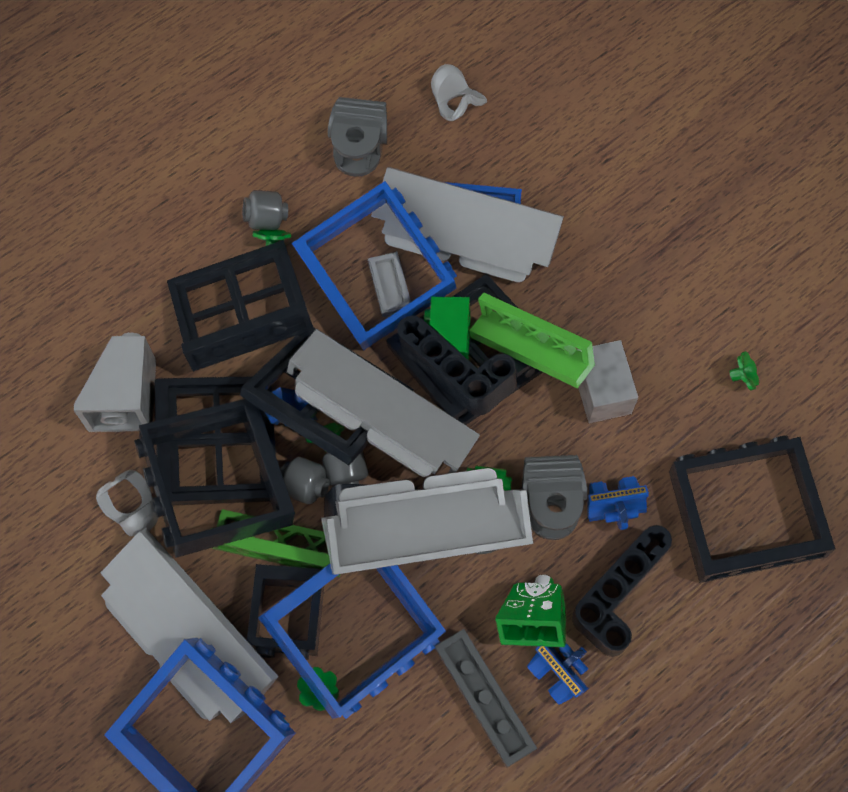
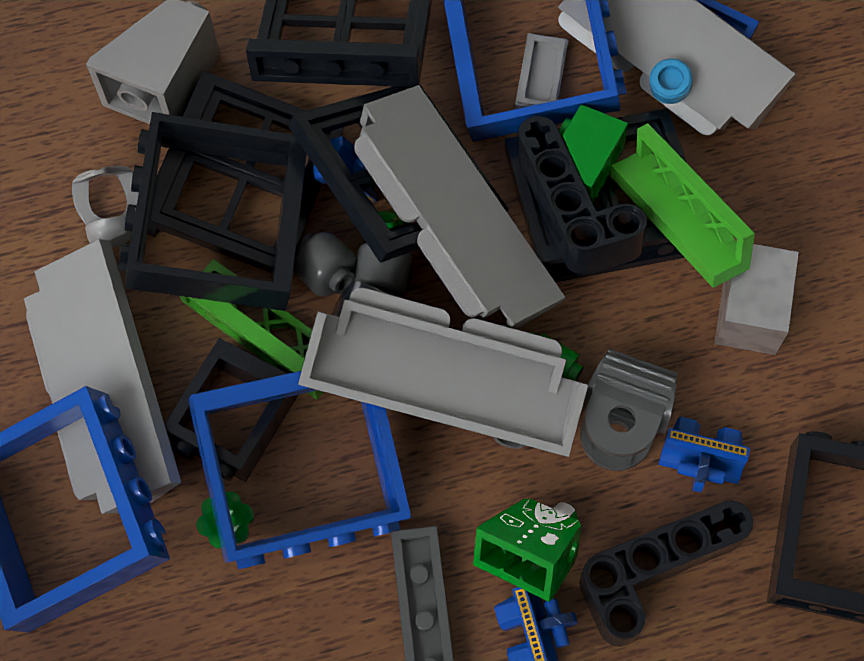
camera: 25 degrees right, 0 degrees up
(482, 255) = (670, 81): none -> dark azure tile

